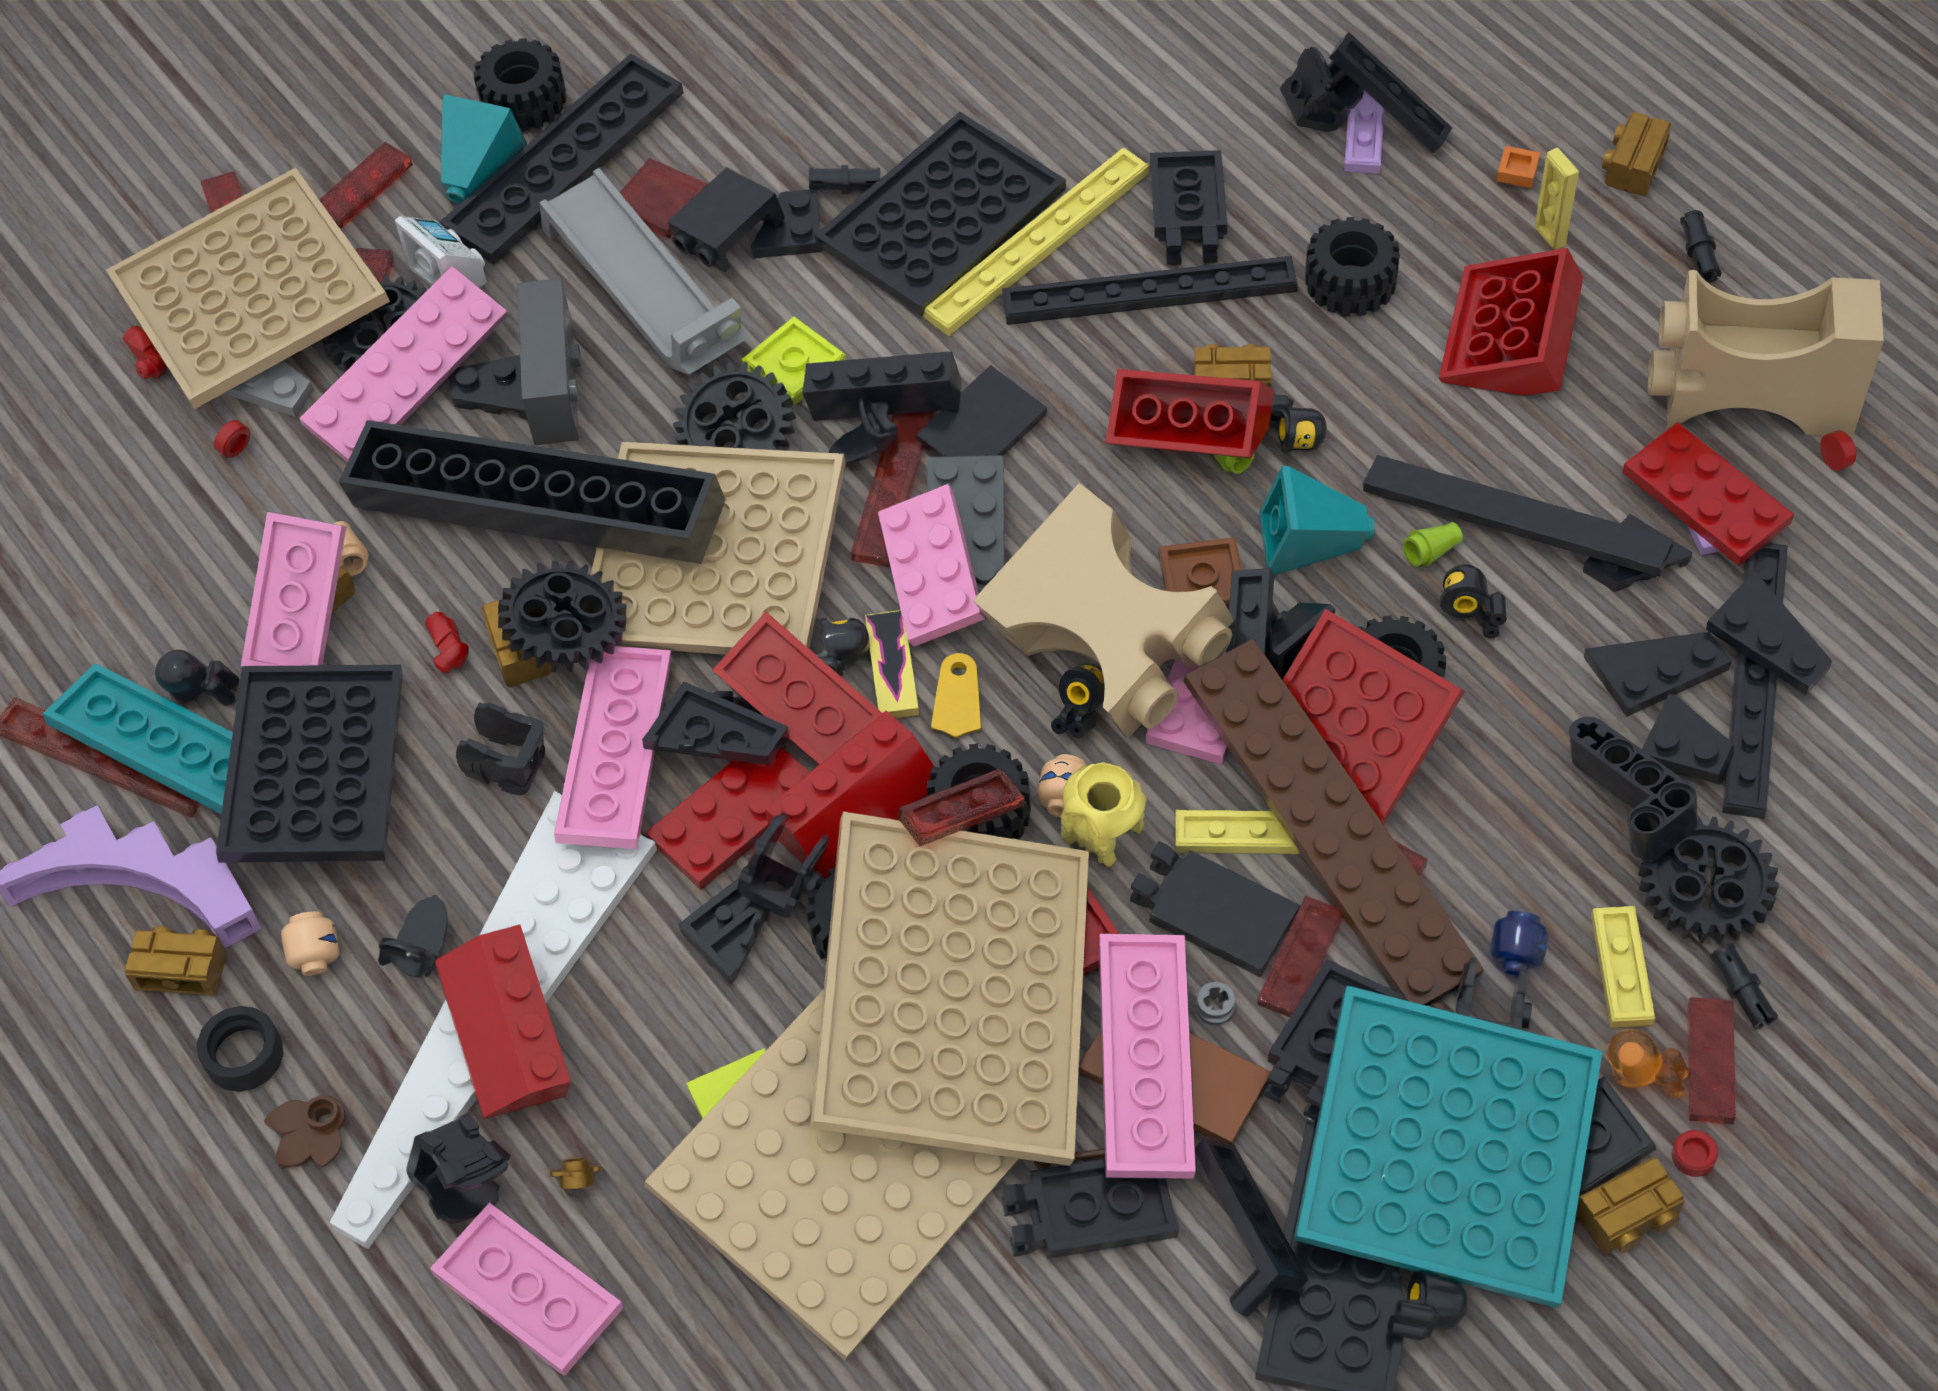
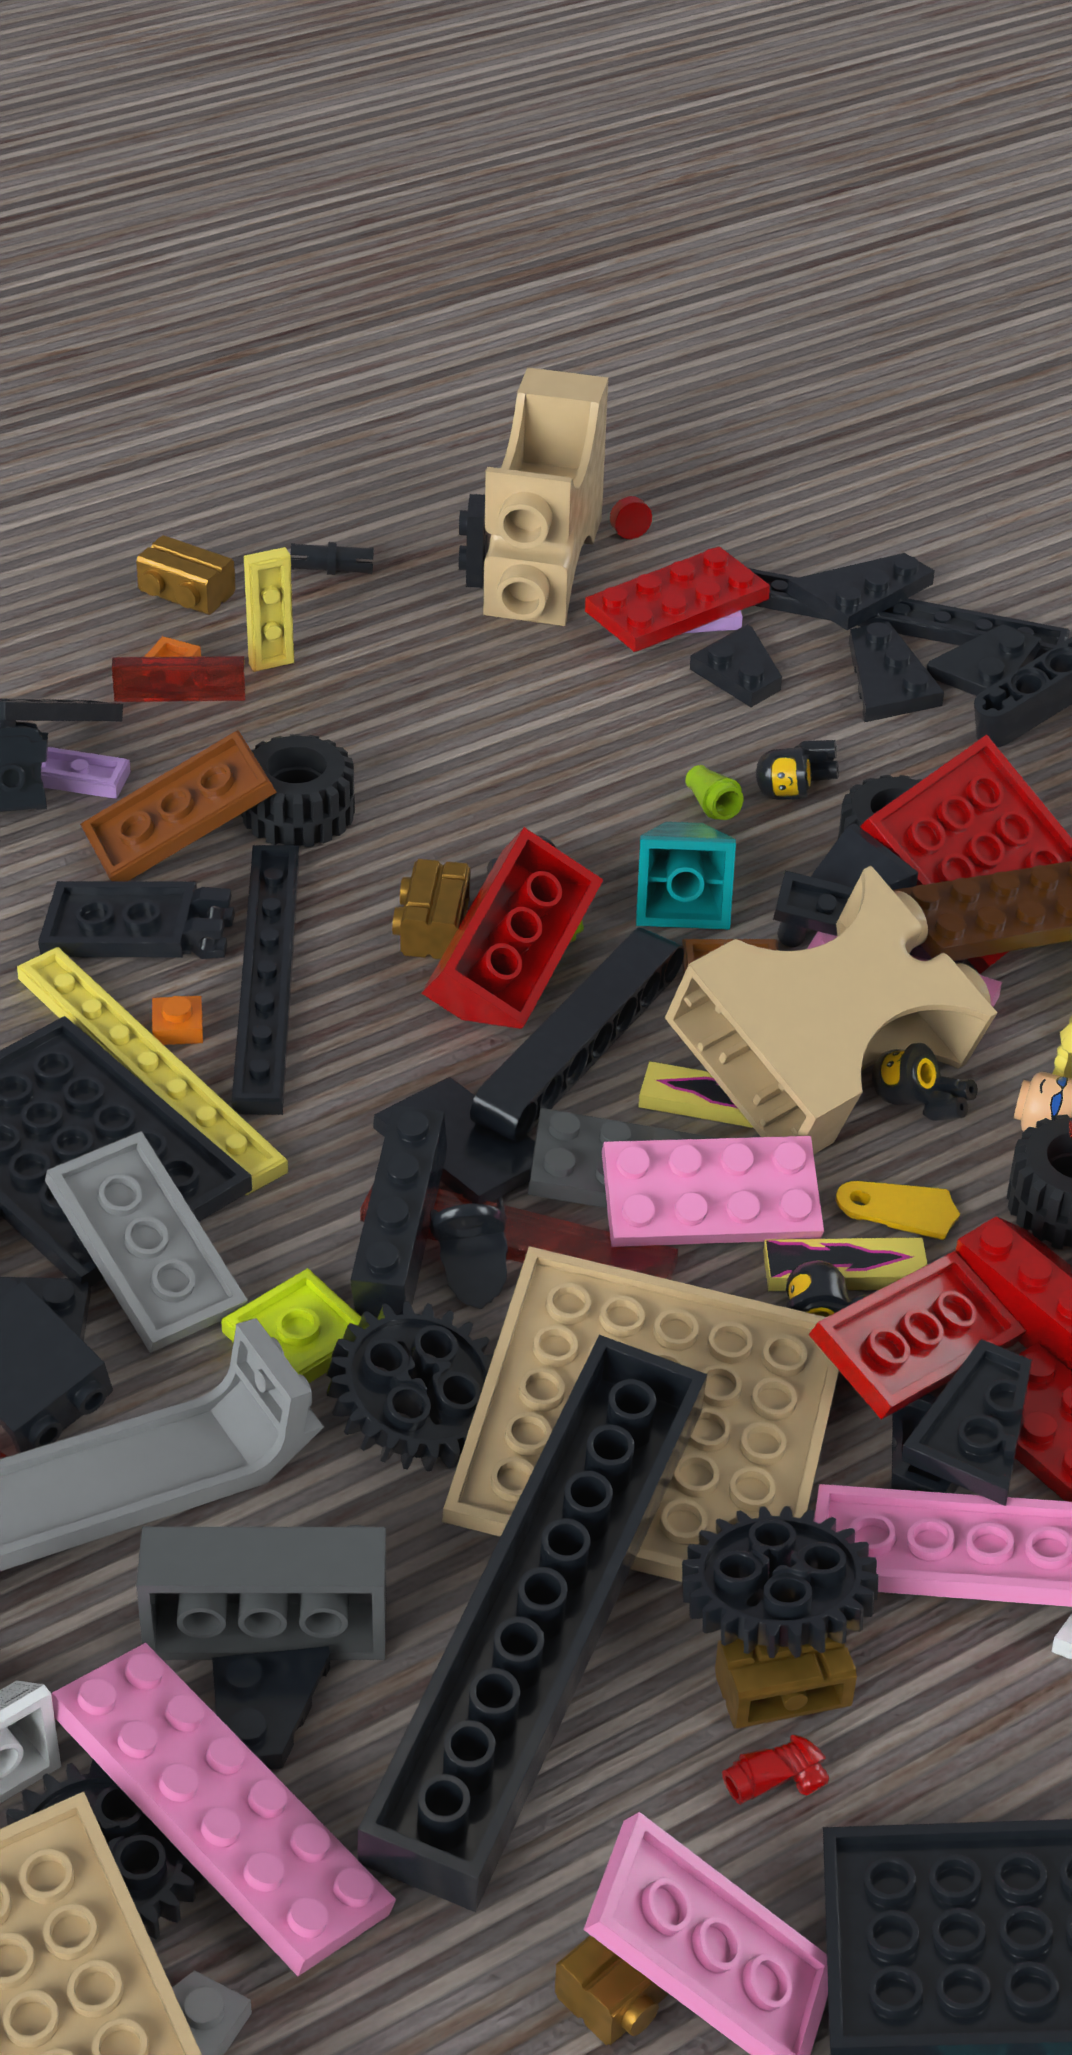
camera: 90 degrees left, 15 degrees down
(354, 553) = (562, 1913): light nougat cone -> none
(502, 727) = (979, 1660): black piece -> none
(839, 256) = (145, 1241): none -> light grey plate
(1087, 247) = (177, 1019): none -> orange plate
(1108, 476) = (576, 1034): none -> black beam
(1303, 196) = (177, 808): none -> dark orange tile
(1489, 174) = (178, 679): none -> clear red tile
(1513, 324) = (412, 688): red slope -> none
(1519, 515) = (683, 728): black tile -> none

